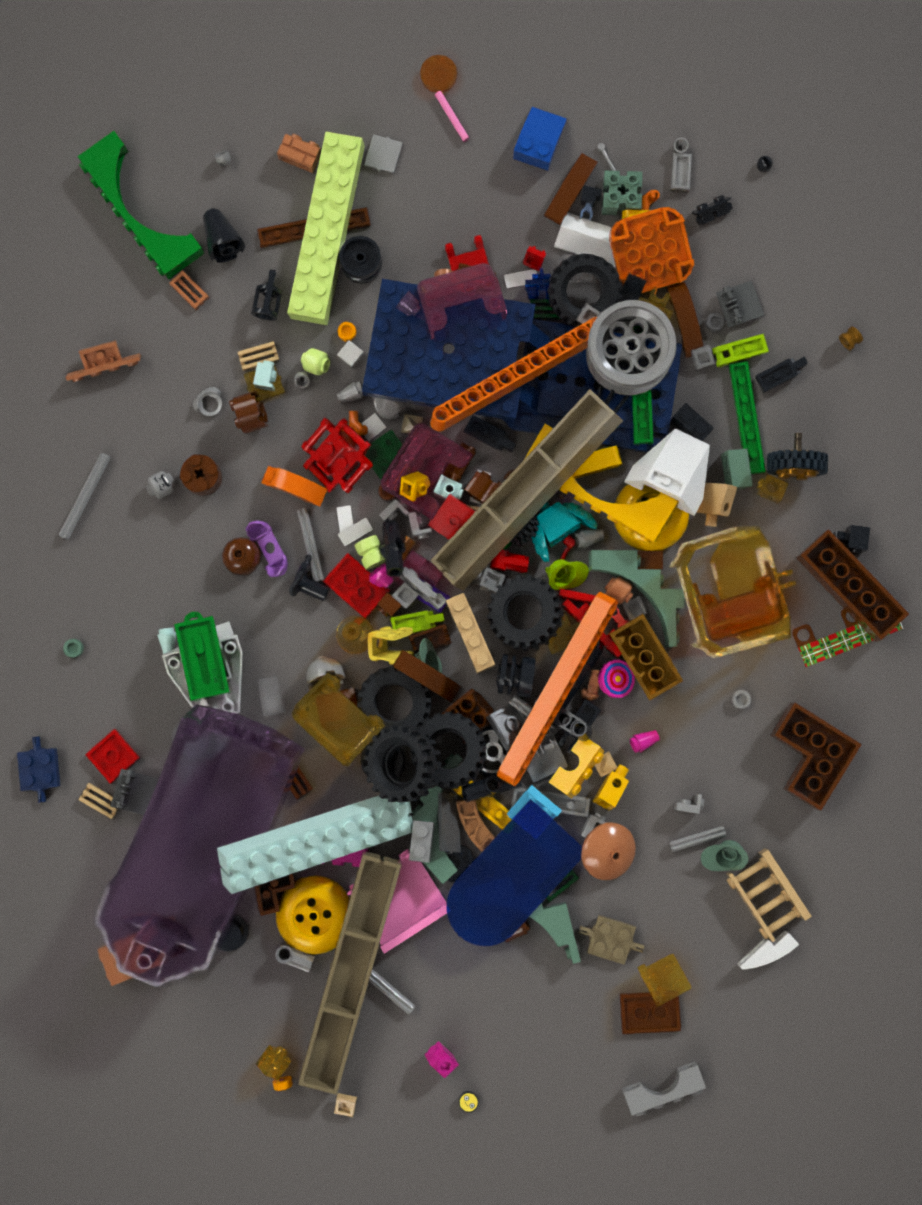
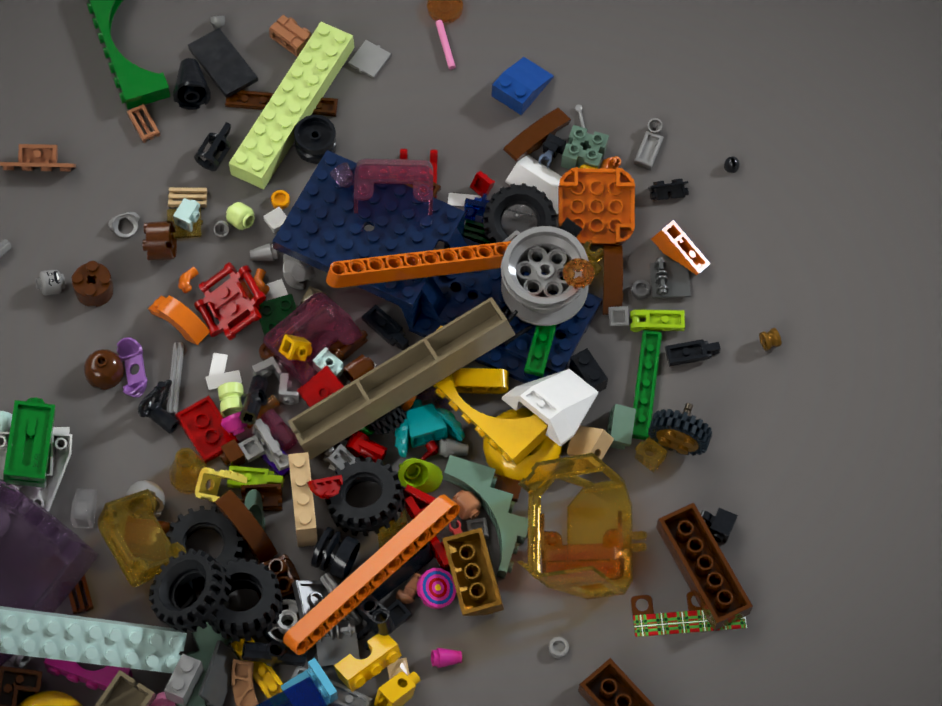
camera: 10 degrees right, 20 degrees down
(243, 202) = (223, 63): none -> black tile
(285, 443) = (185, 278): none -> orange arm
(491, 619) = (326, 487): none -> red plate
(663, 335) = (578, 265): none -> clear orange gear
(740, 269) = (679, 247): none -> orange slope

